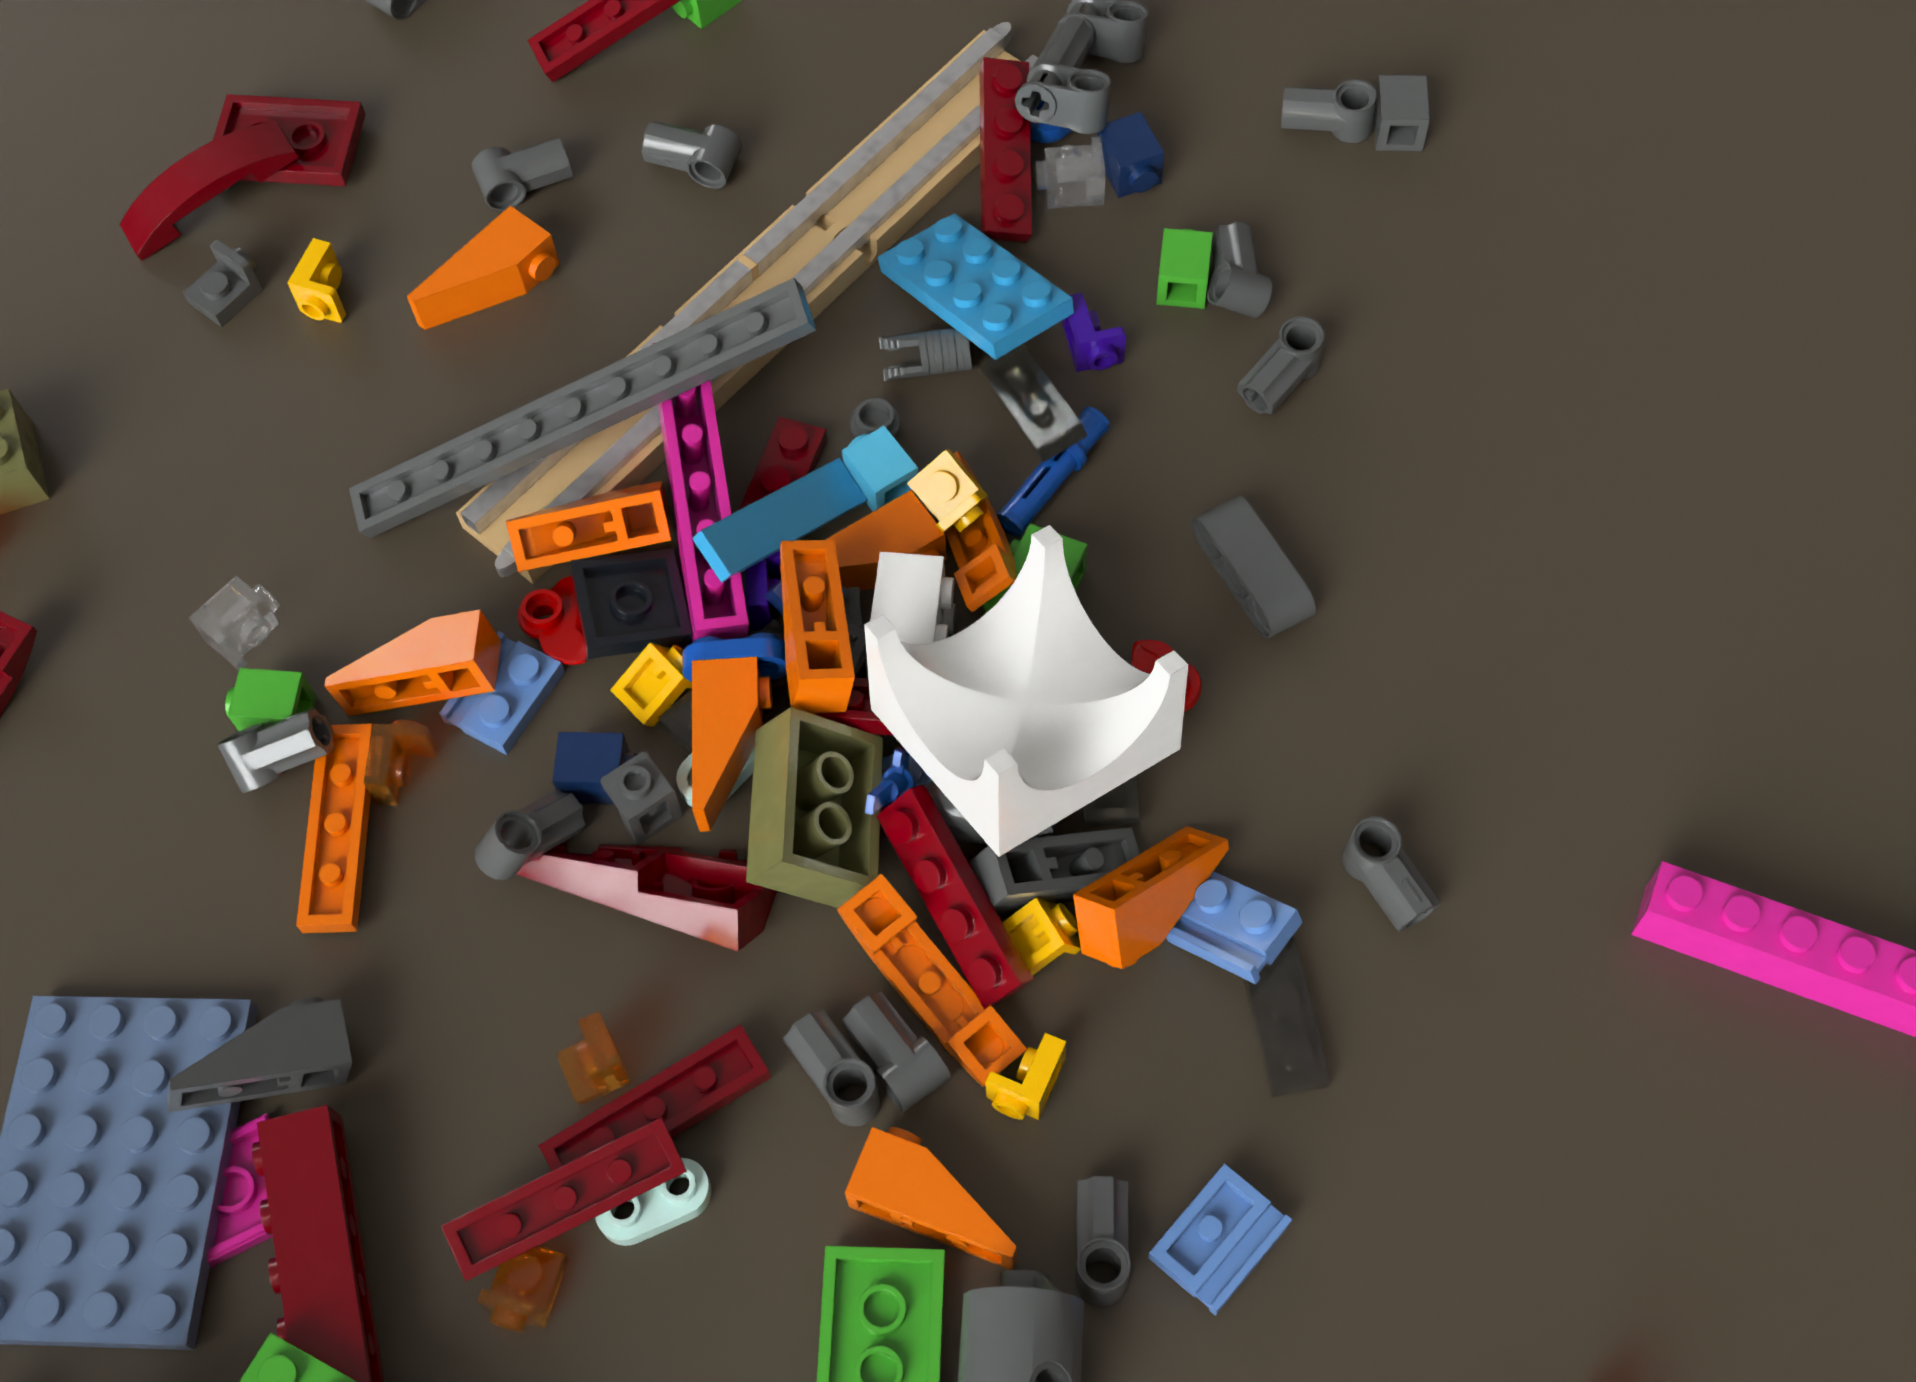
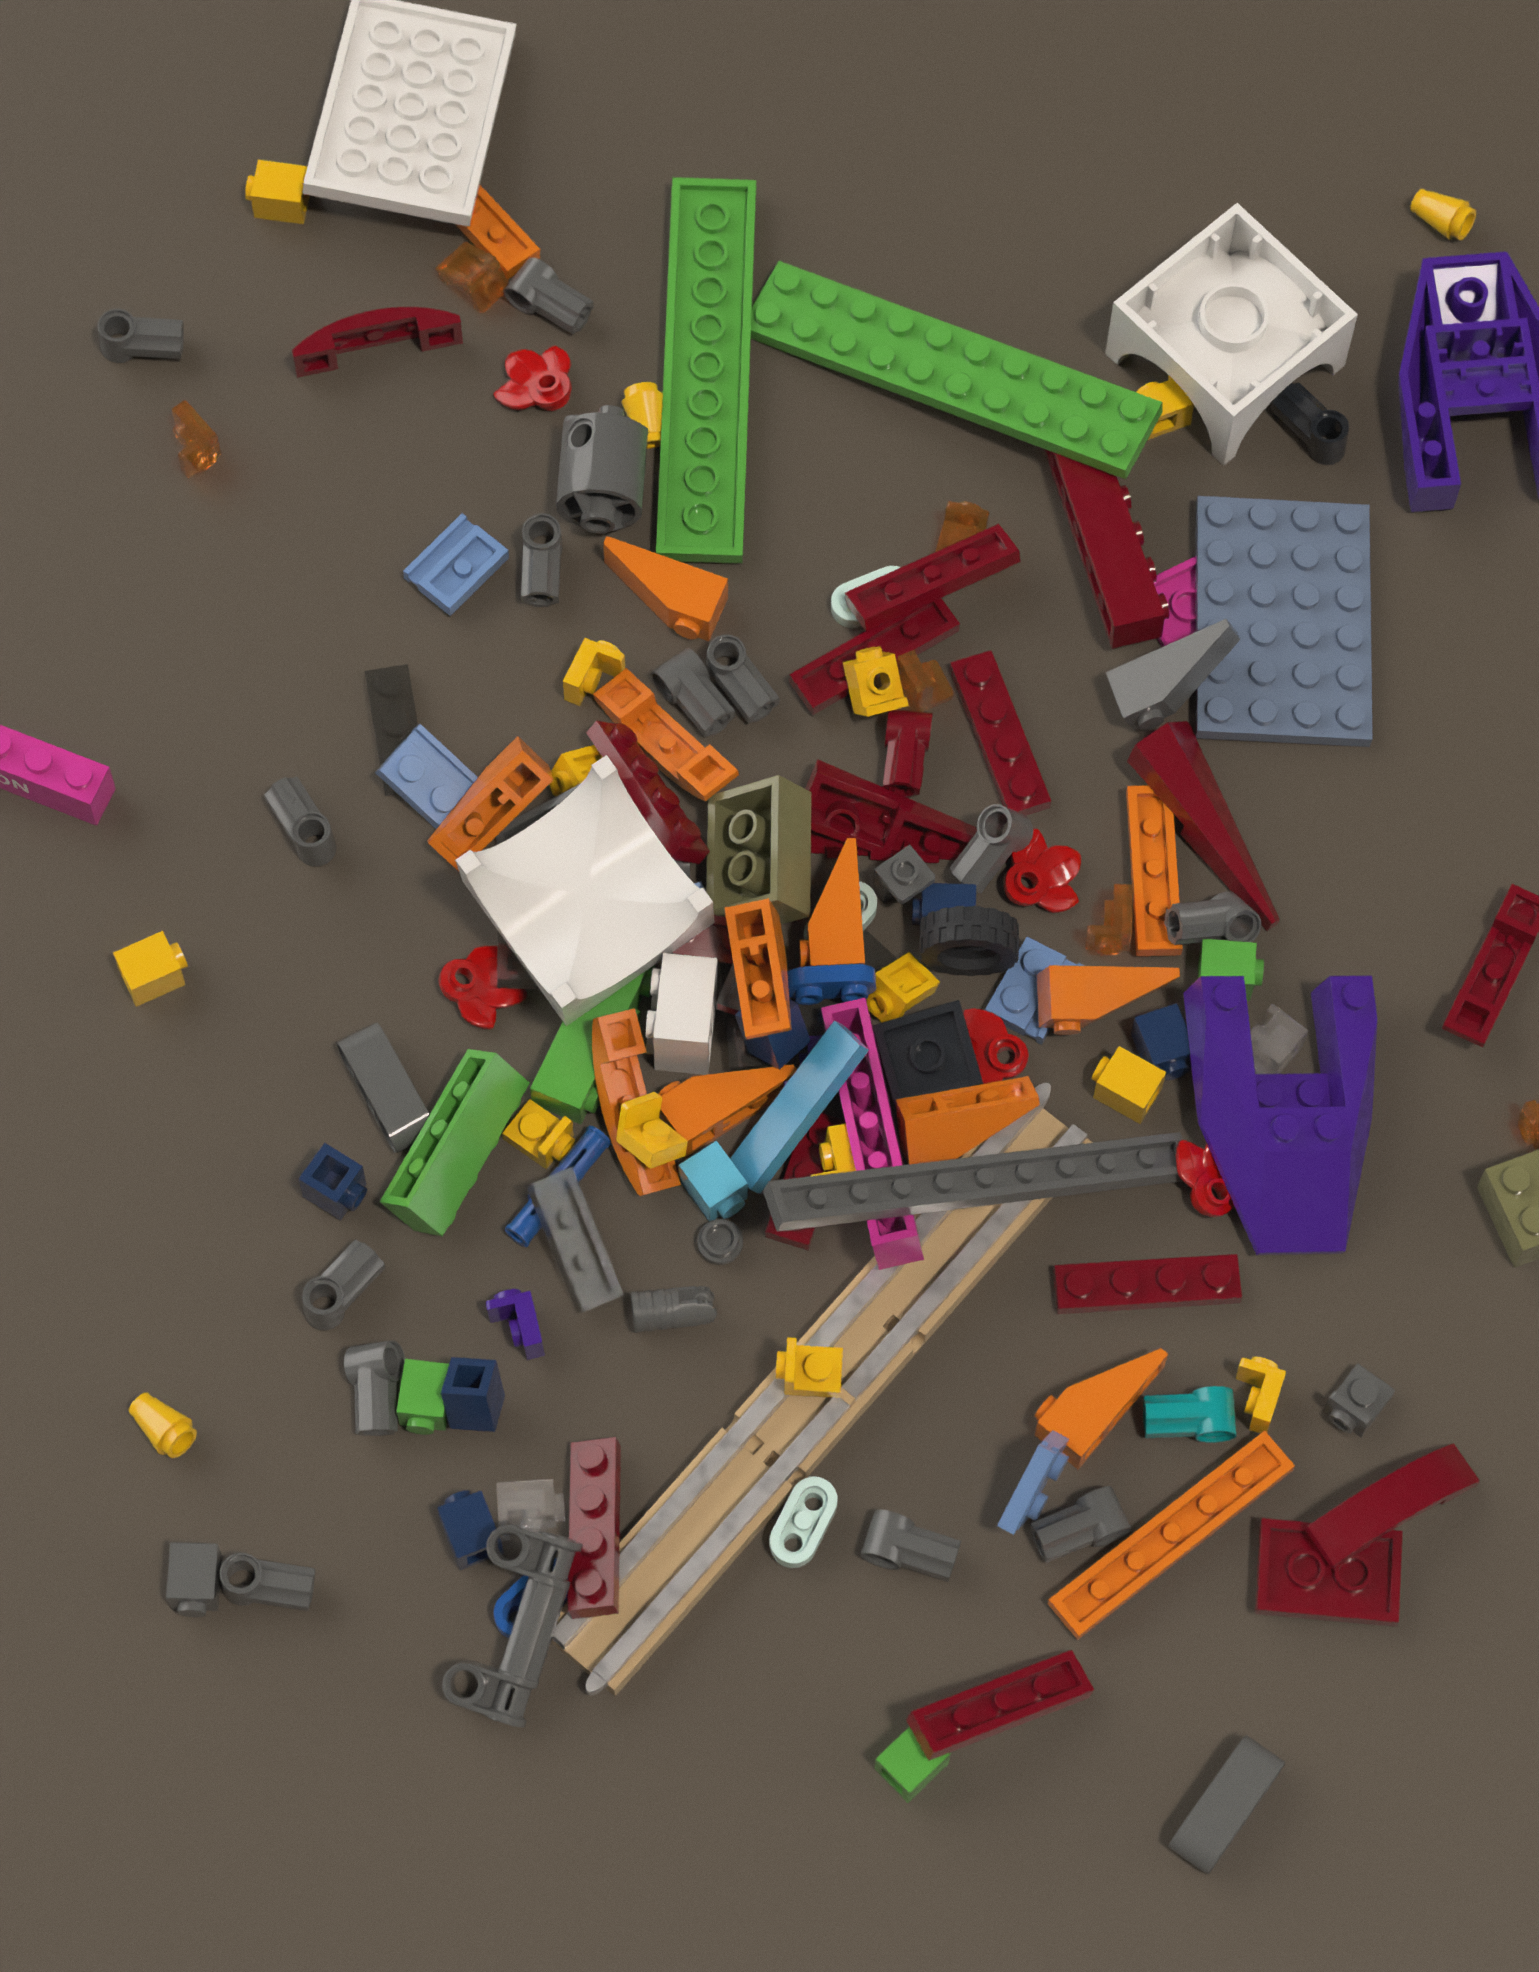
camera: 175 degrees right, 5 degrees up
(232, 507) = (1286, 1141): none -> dark purple wedge
(276, 922) = (1181, 777): none -> dark red wedge
(332, 481) = (1201, 1173): none -> red plate
(357, 619) = (1163, 1040): none -> dark blue brick
(381, 264) = (1204, 1414): none -> teal piece
(407, 577) = (1127, 1084): none -> yellow brick
(421, 392) = (1147, 1284): none -> dark red plate
(431, 167) = (1171, 1535): none -> orange plate
(467, 817) = (1049, 873): none -> red plate
(505, 1009) = (1000, 734): none -> dark red plate
(560, 178) = (1028, 1497): none -> medium blue plate
(564, 700) = (969, 941): none -> black tyre
(624, 985) = (906, 745): none -> dark red piece
(655, 1043) = (860, 676): none -> yellow brick
(741, 456) = (836, 1151): none -> yellow bracket
(775, 266) = (810, 1370): none -> yellow bracket
(792, 174) = (803, 1524): none -> light aqua plate
(894, 783) = (699, 870): blue piece -> none
(976, 285) = (626, 1366): dark azure plate -> none
(1076, 519) = (540, 1134): none -> yellow bracket
(1134, 255) = (473, 1394): none -> dark blue brick
(1169, 497) = (455, 1142): none -> bright green brick
(1302, 453) = (333, 1182): none -> dark blue brick
(1454, 241) = (165, 1427): none -> yellow cone
(1548, 692) = (151, 967): none -> yellow brick

